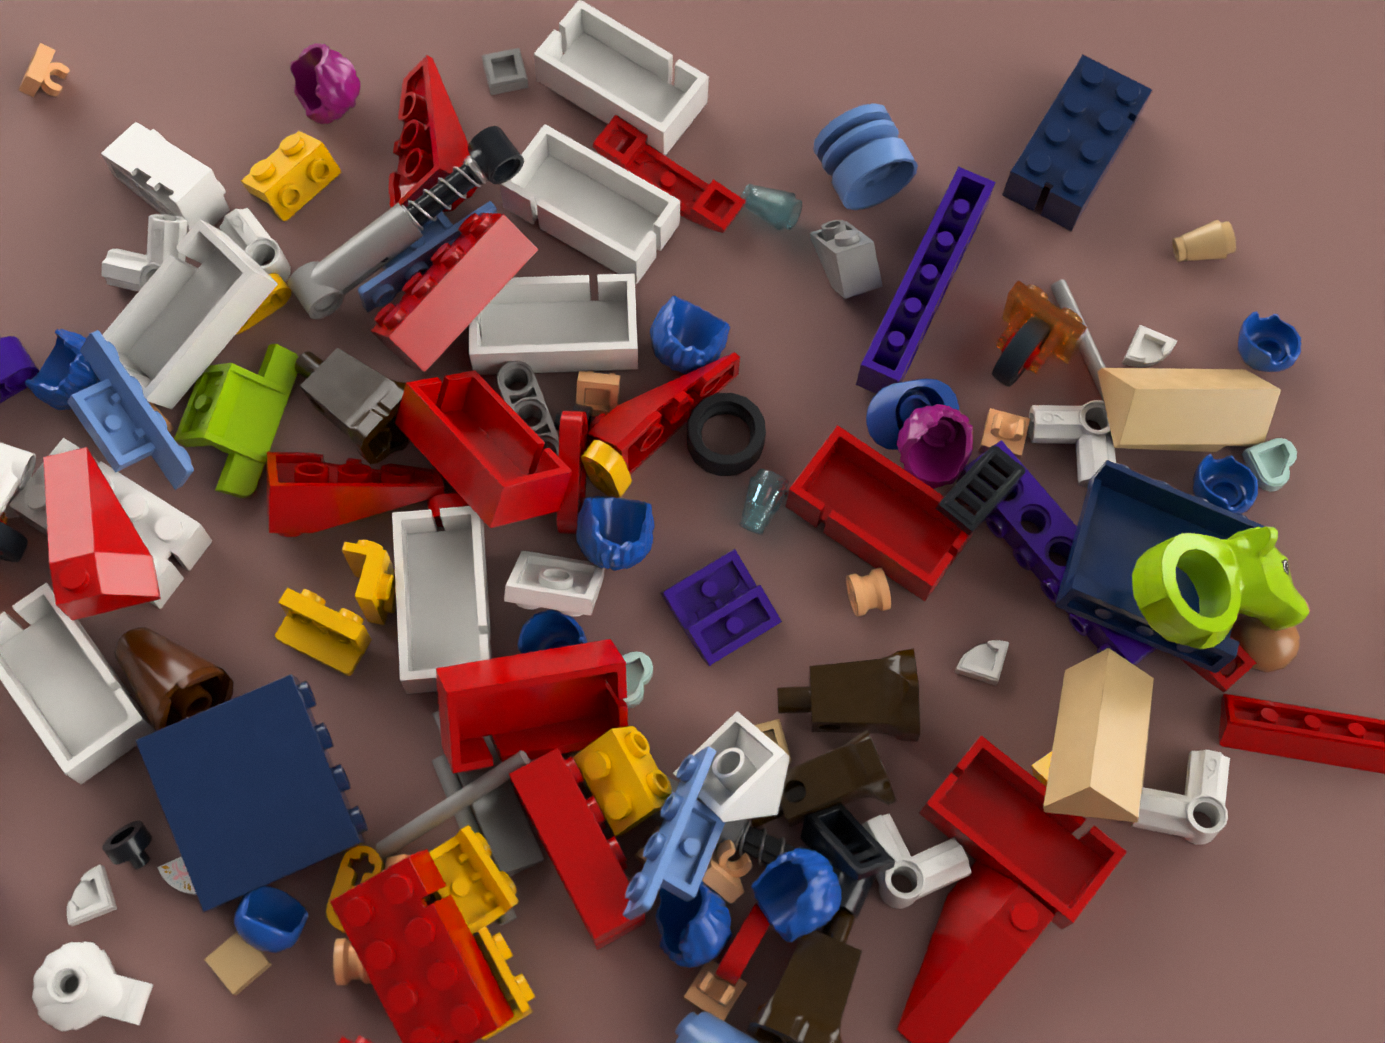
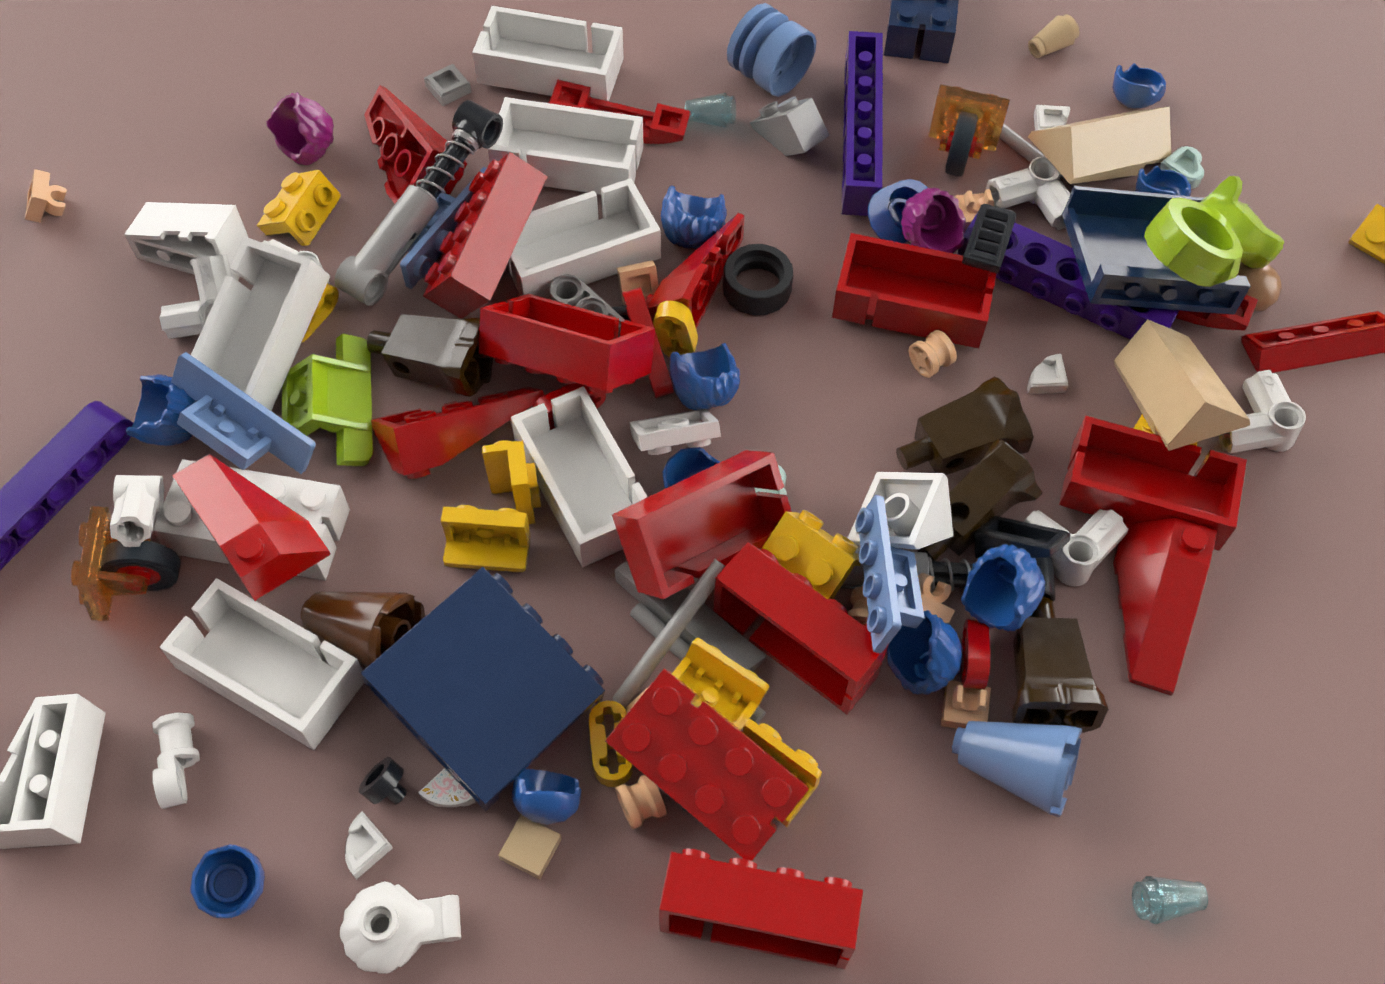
camera: 20 degrees left, 10 degrees down
(721, 607) = (817, 408): dark purple slope -> none
(763, 499) = (812, 315): clear light blue cone -> none

